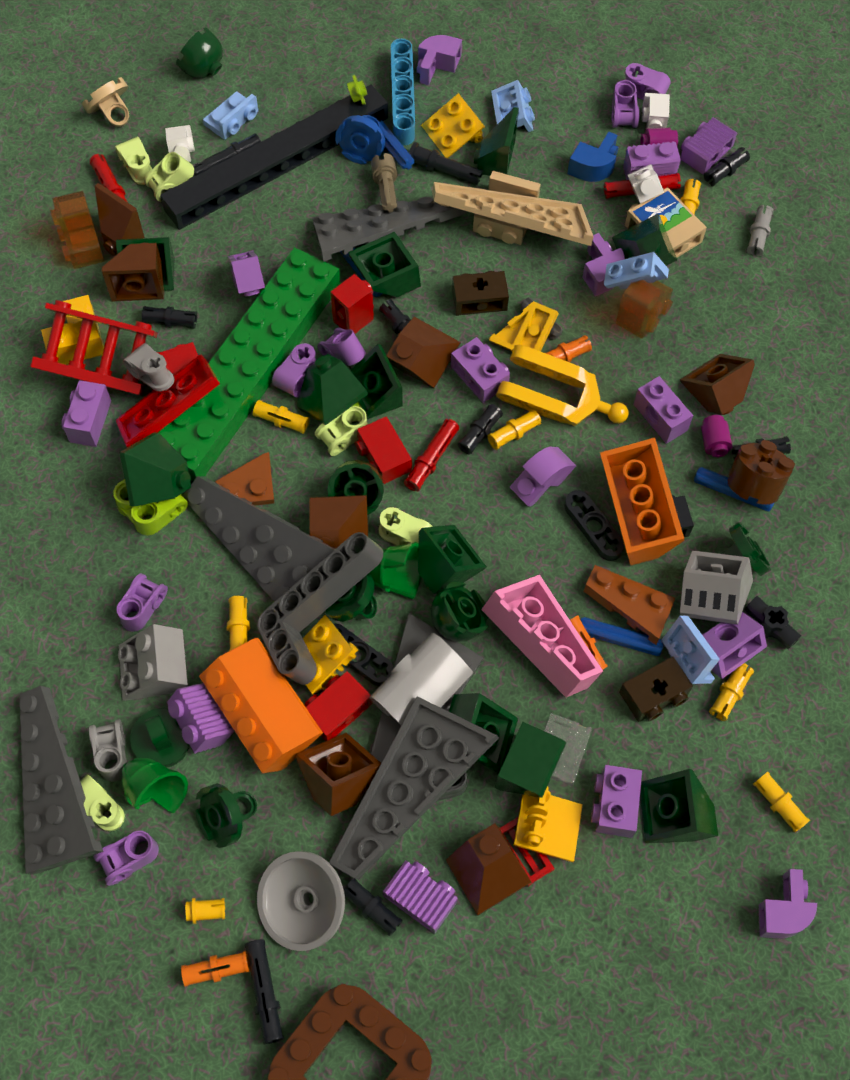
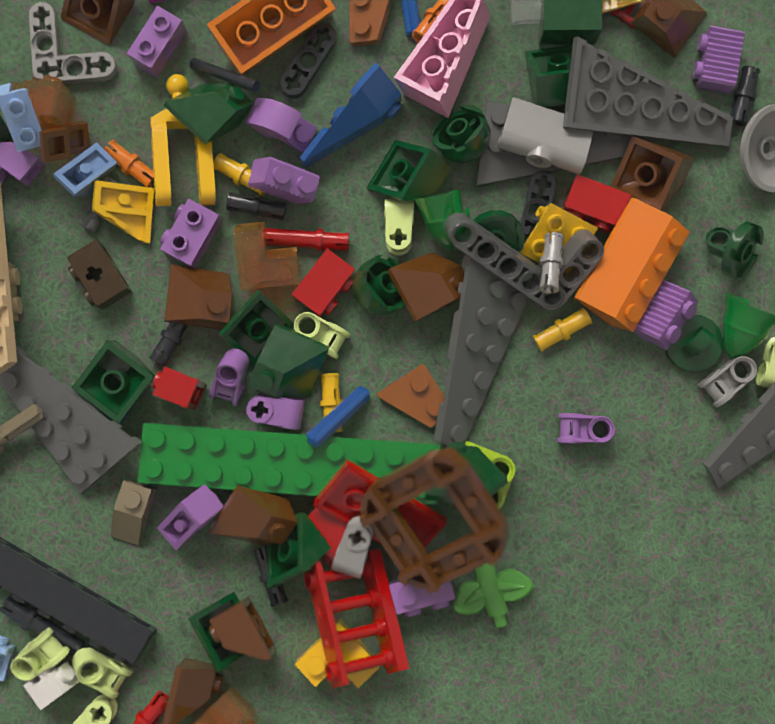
camera: 115 degrees left, 20 degrees up
(54, 467) = (492, 592): none -> bright green plant
(152, 663) = (636, 384): light grey slope -> none
(163, 427) = (455, 474): none -> reddish brown plate
(173, 329) = (297, 554): none -> dark green slope
(204, 141) = (38, 656): none -> yellowish green piece
(216, 313) = (255, 517): none -> reddish brown slope
(264, 408) = (338, 416): none -> blue axle
(277, 242) = (132, 511): none -> dark tan slope
(297, 623) = (551, 263): none -> light grey pin
(427, 404) = (259, 265): none -> clear orange brick
(488, 450) = (283, 180): none -> medium lavender brick
(526, 543) = (371, 103): none -> blue wedge
(571, 310) = (84, 170): none -> medium blue slope
(581, 420) = (210, 109): none -> dark green slope
(604, 301) = (63, 141): none -> reddish brown slope
(616, 442) = (224, 74): none -> black bar
(686, 333) = (52, 56): none -> light grey beam

